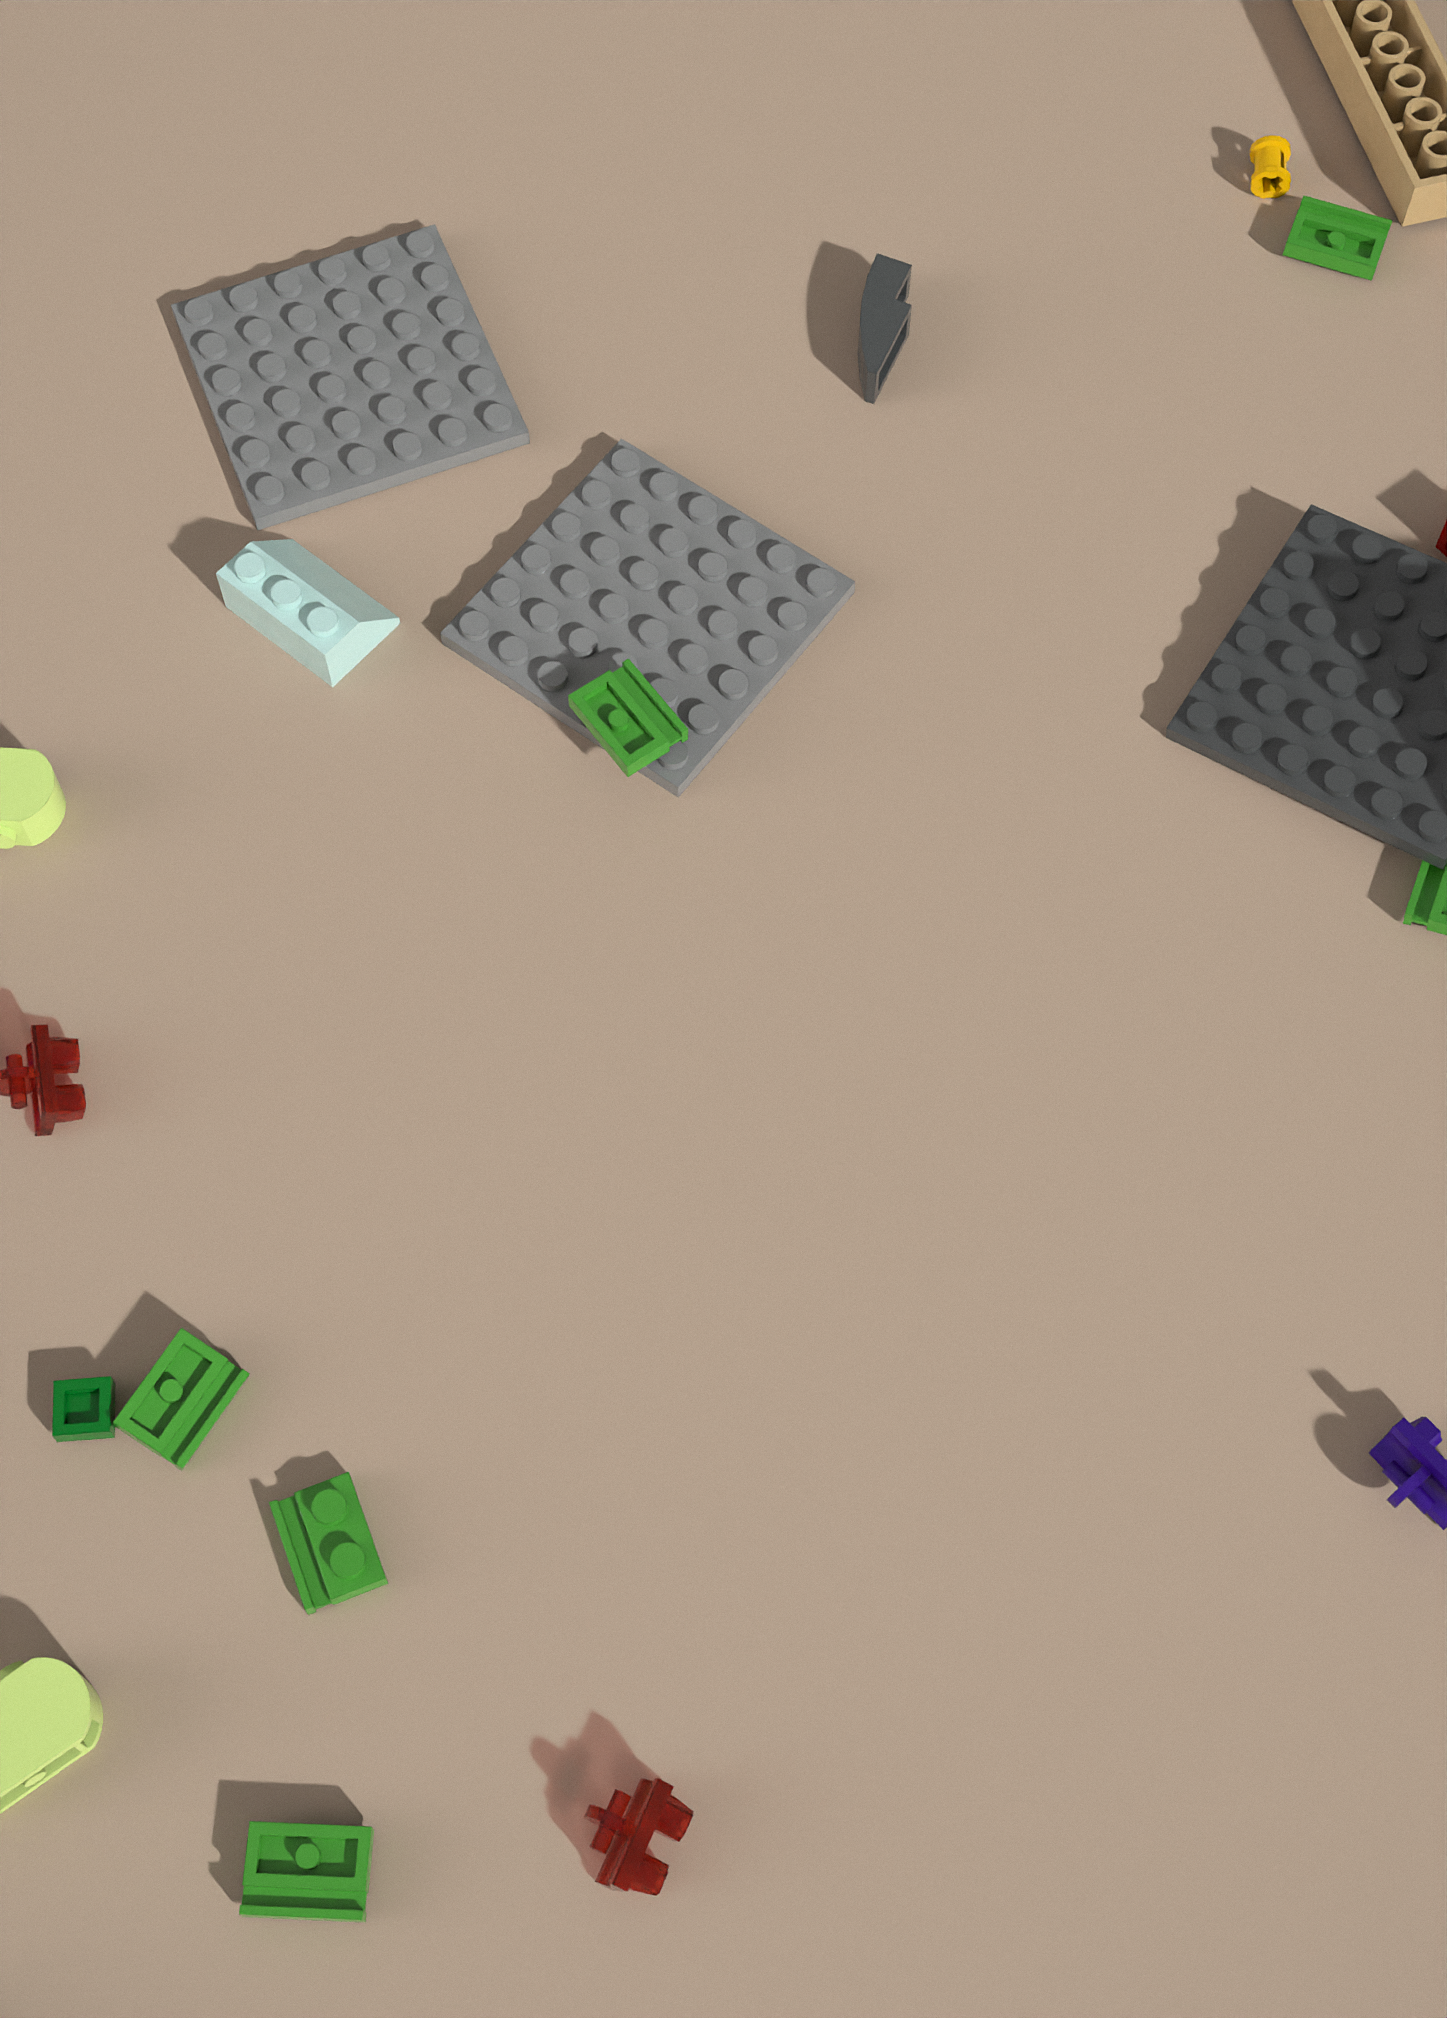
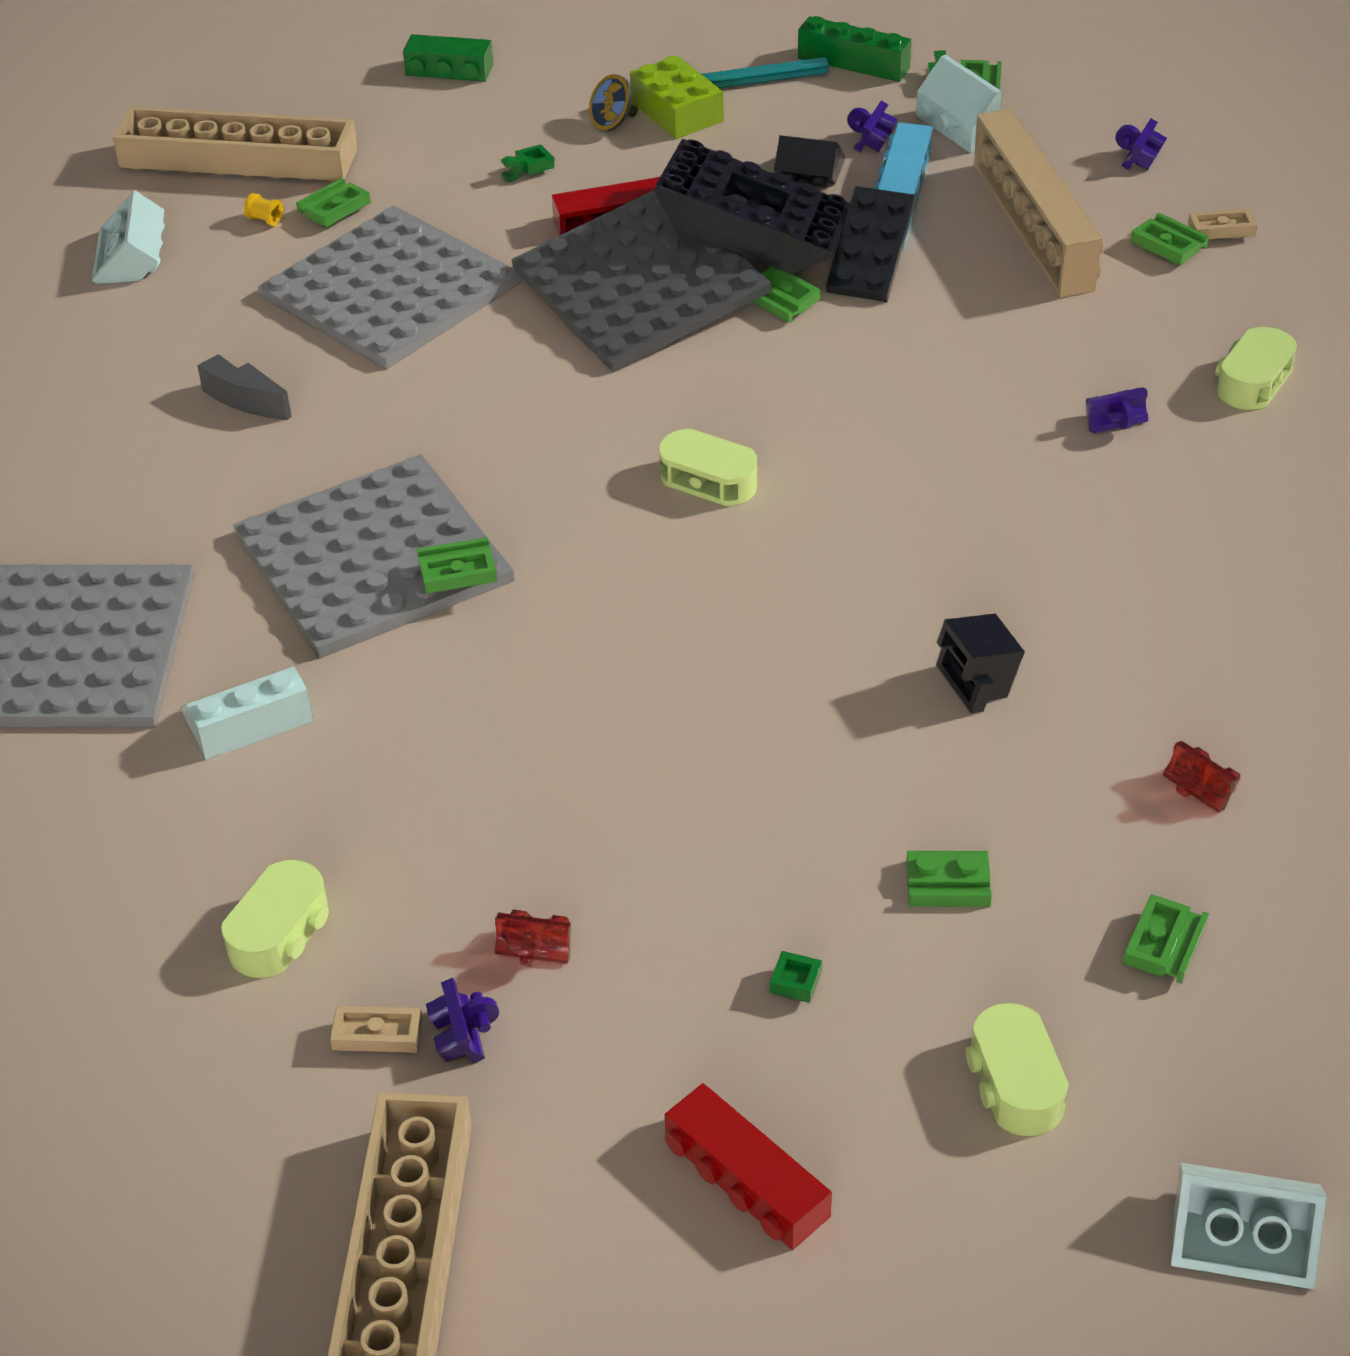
camera: 65 degrees left, 20 degrees down
(181, 1399) = (814, 922): bright green plate -> none
(727, 1441) = (978, 658): none -> black plate
(998, 940) = (708, 467): none -> yellowish green brick
(1111, 60) = (129, 241): none -> light aqua slope
(1201, 388) = (389, 286): none -> light grey plate

